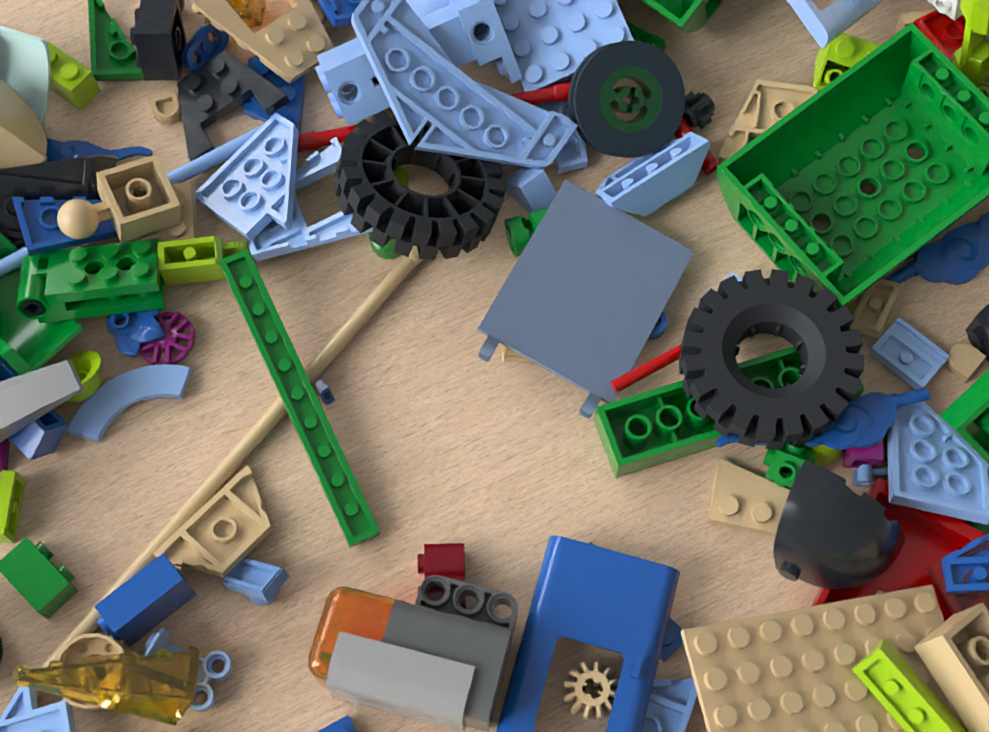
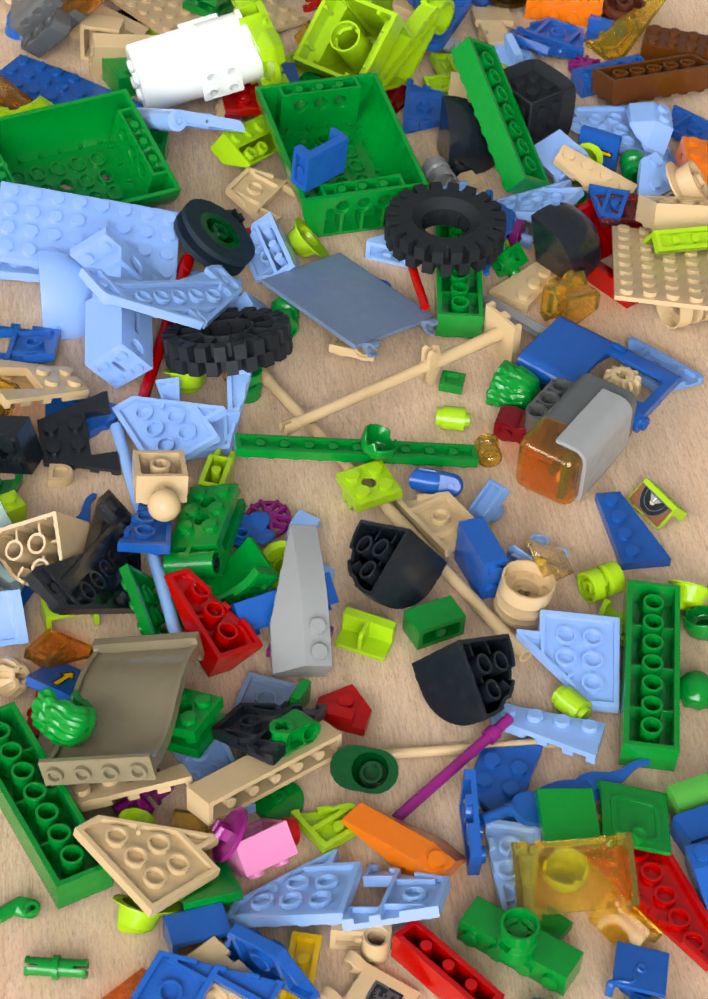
camera: 75 degrees left, 25 degrees down
(99, 500) = (392, 564): none -> black brick
(253, 447) = (363, 497): none -> lime piece
(290, 413) = (377, 442): none -> green hair
(290, 505) = (434, 481): none -> blue arm
(377, 552) = (488, 450): none -> clear yellow wheel
(423, 489) = (452, 418): none -> lime brick
(502, 425) = (497, 333): none -> tan piece
(508, 468) = (452, 382): none -> green tile
(511, 547) = (512, 386): none -> green hair
(671, 508) = (527, 323): none -> light grey axle
(699, 209) = (304, 241): none -> lime piece
(728, 571) = (569, 297): none -> clear yellow piece
(777, 157) = (320, 163): none -> blue panel
(941, 316) = (438, 170): none -> light grey wheel

